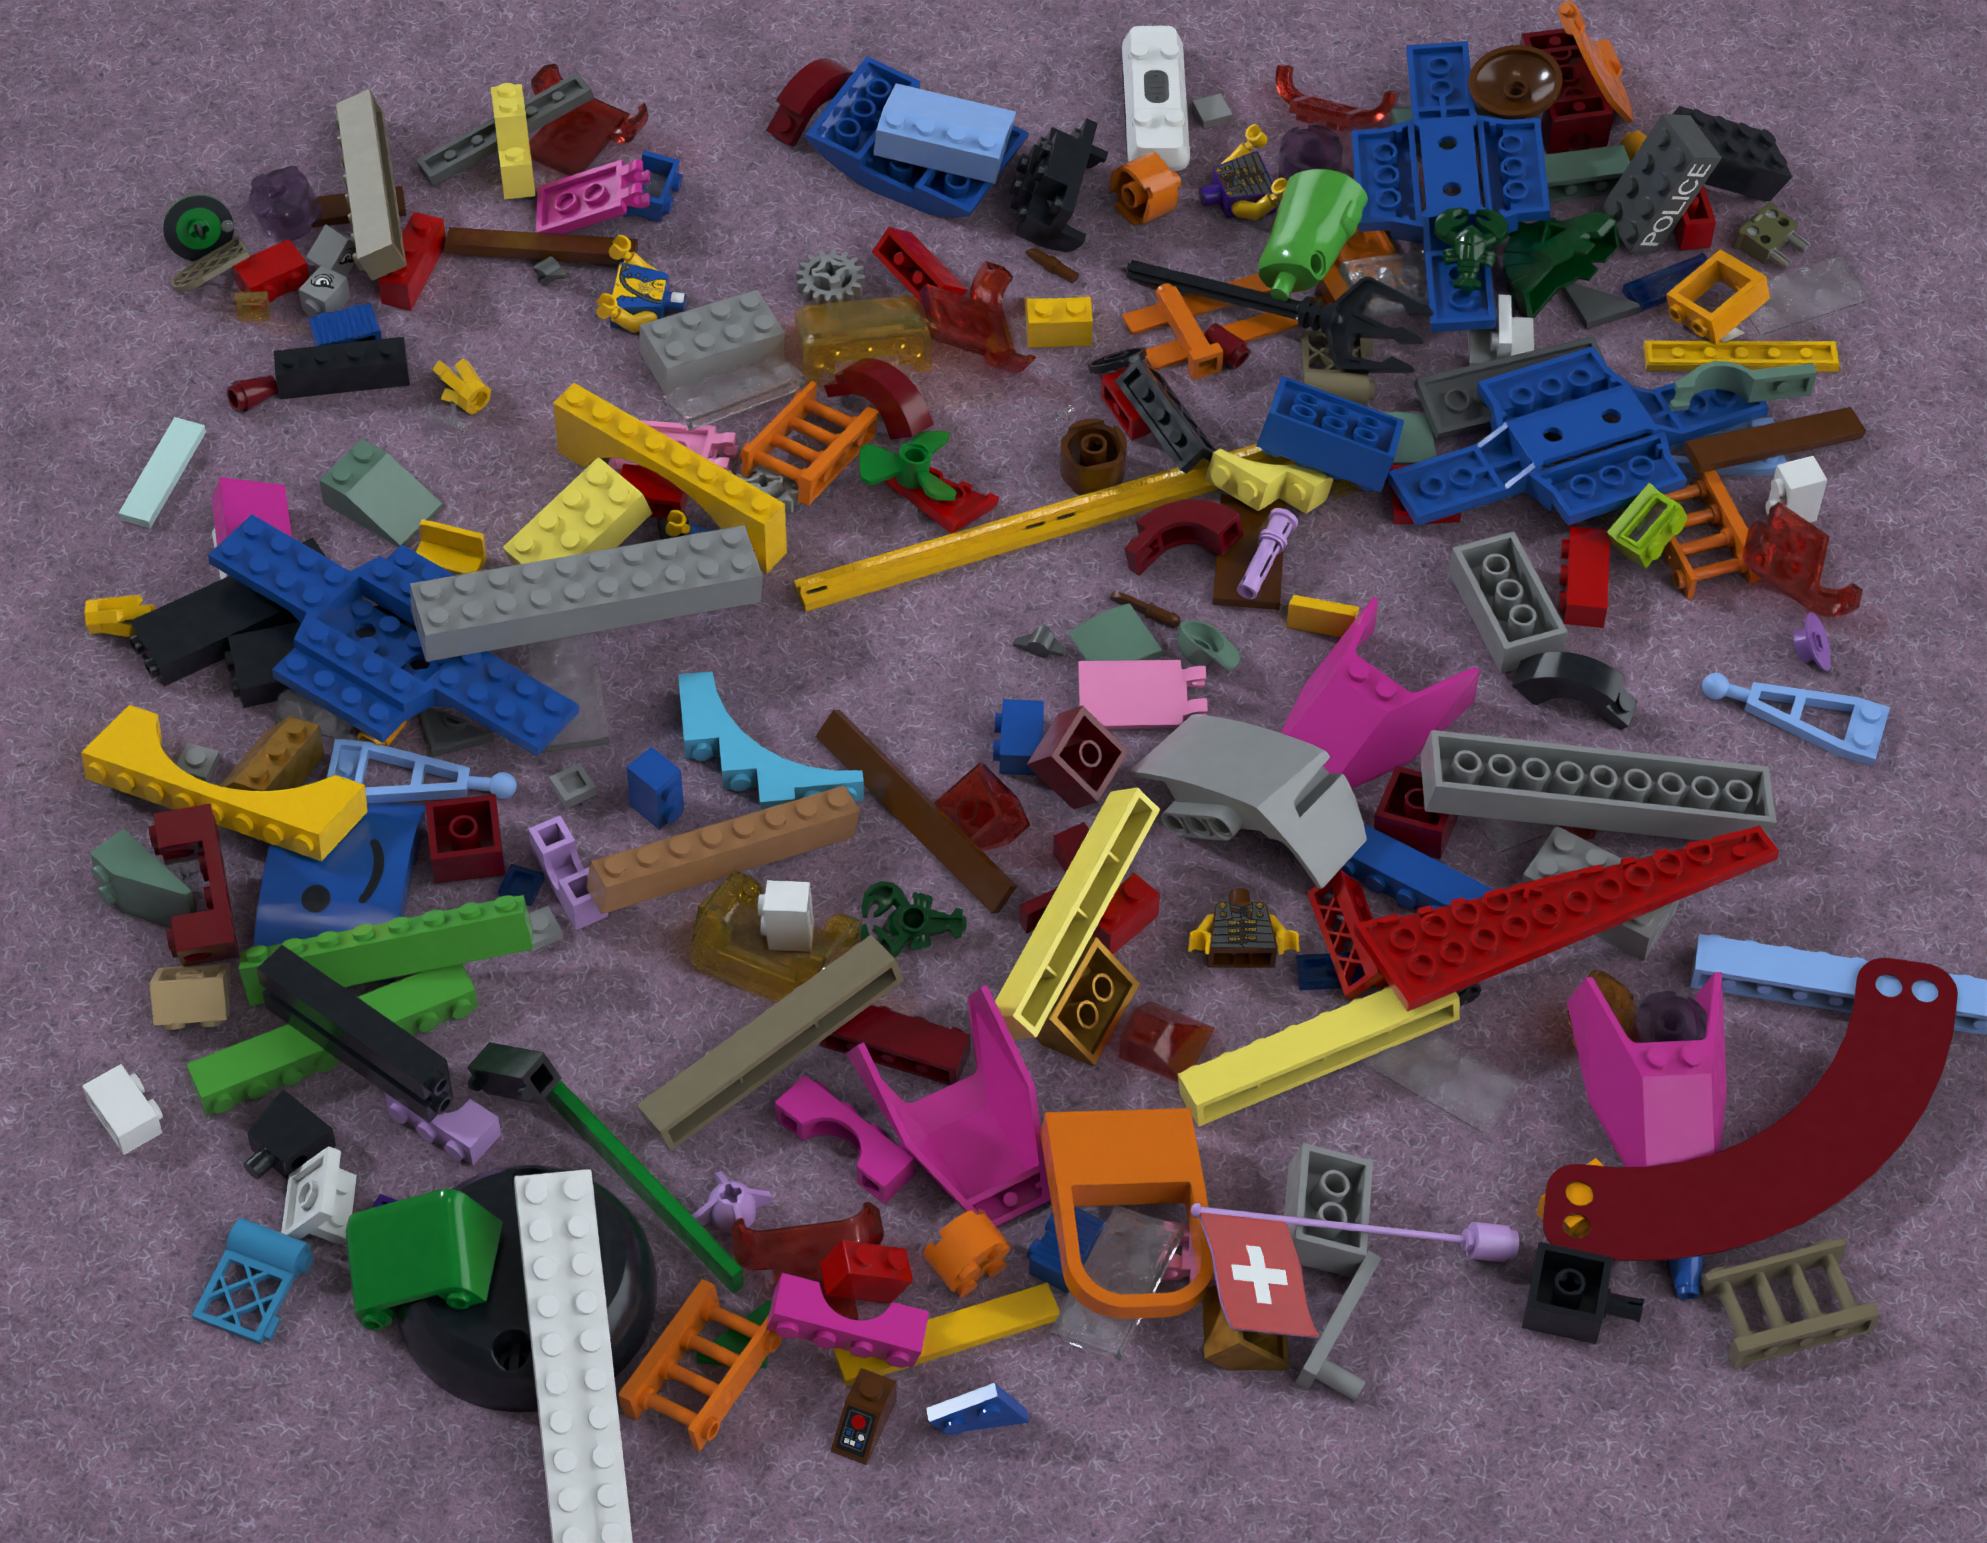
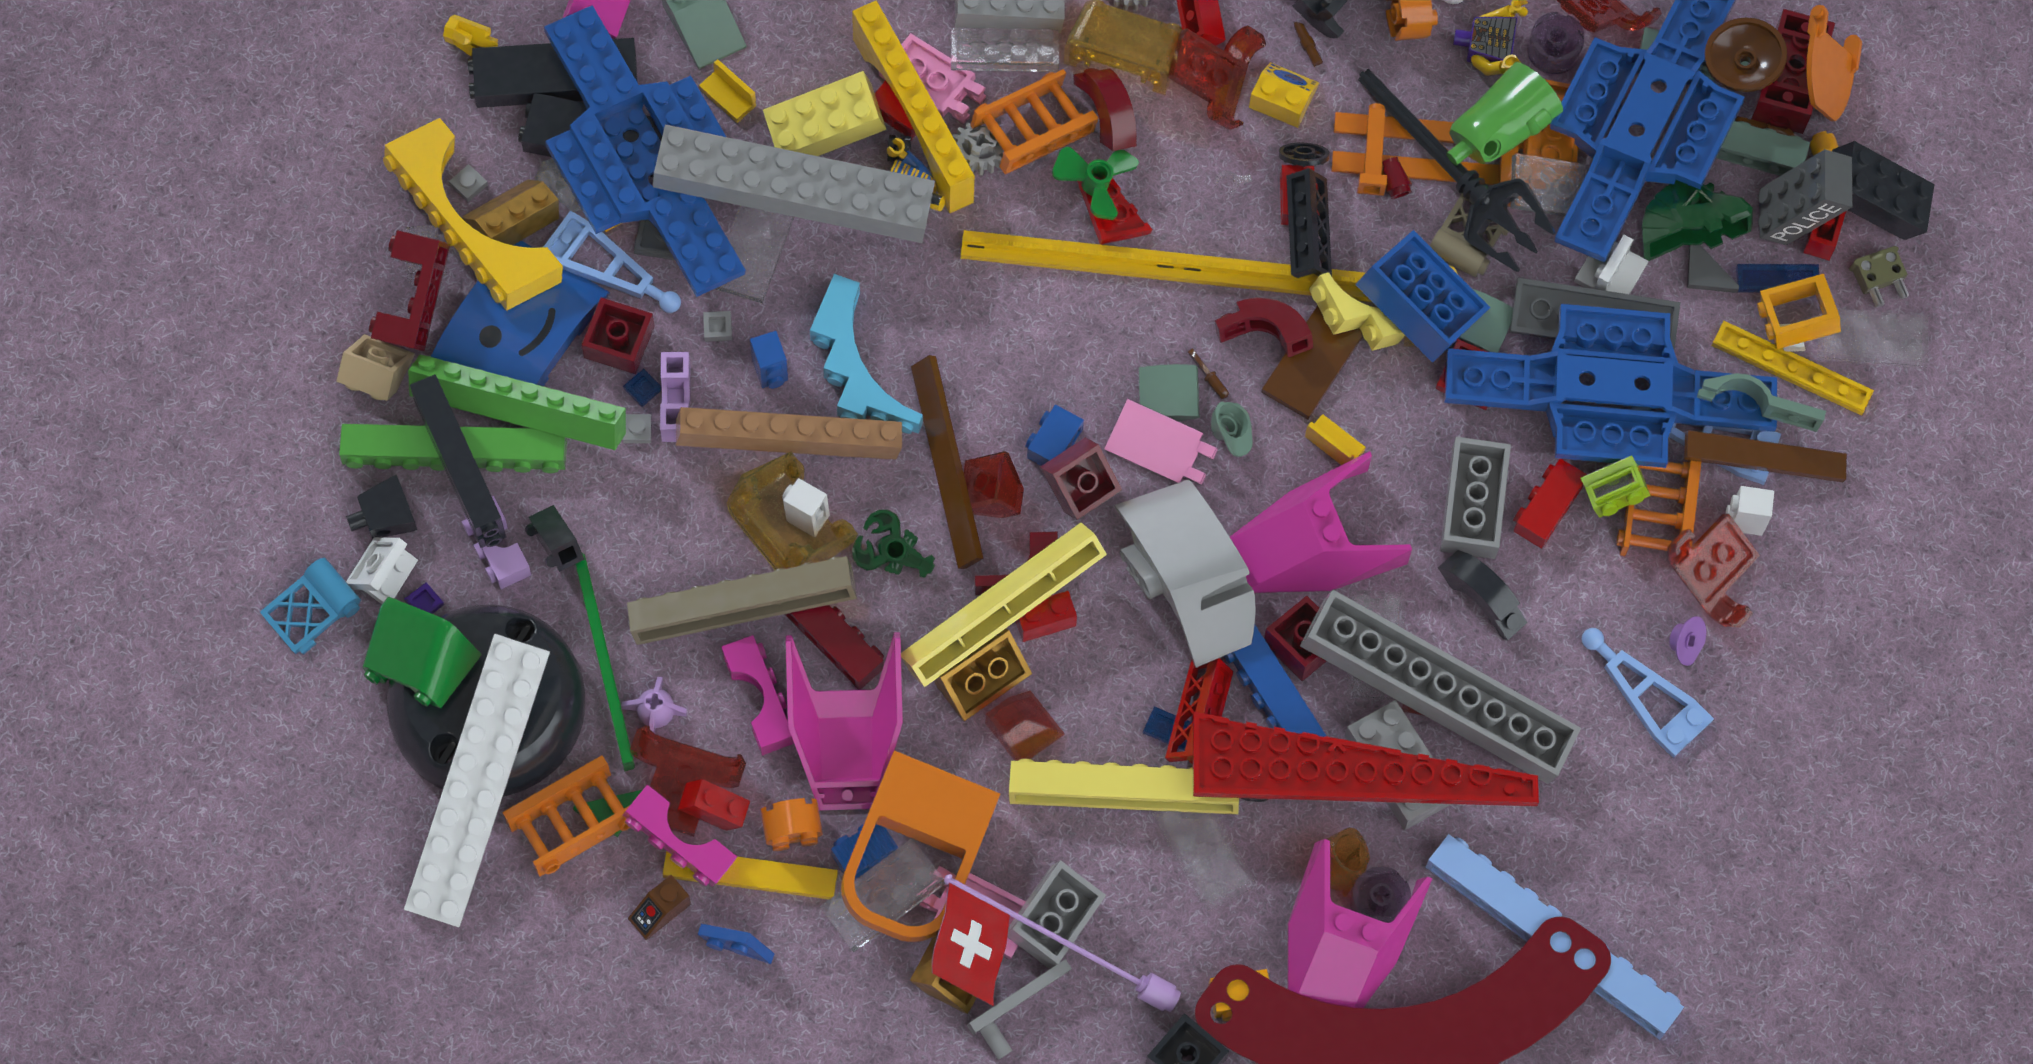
camera: 25 degrees right, 15 degrees up
(123, 1108) = (287, 435): white brick -> none
(138, 881) = (371, 256): sand green slope -> none
(1040, 643) = (1114, 366): dark grey piece -> none
(1092, 456) = (1239, 215): reddish brown brick -> none
(1242, 934) = (1121, 671): torso -> none
(1271, 542) = (1328, 365): lavender pin -> none
(1470, 243) = (1621, 184): dark green animal -> none

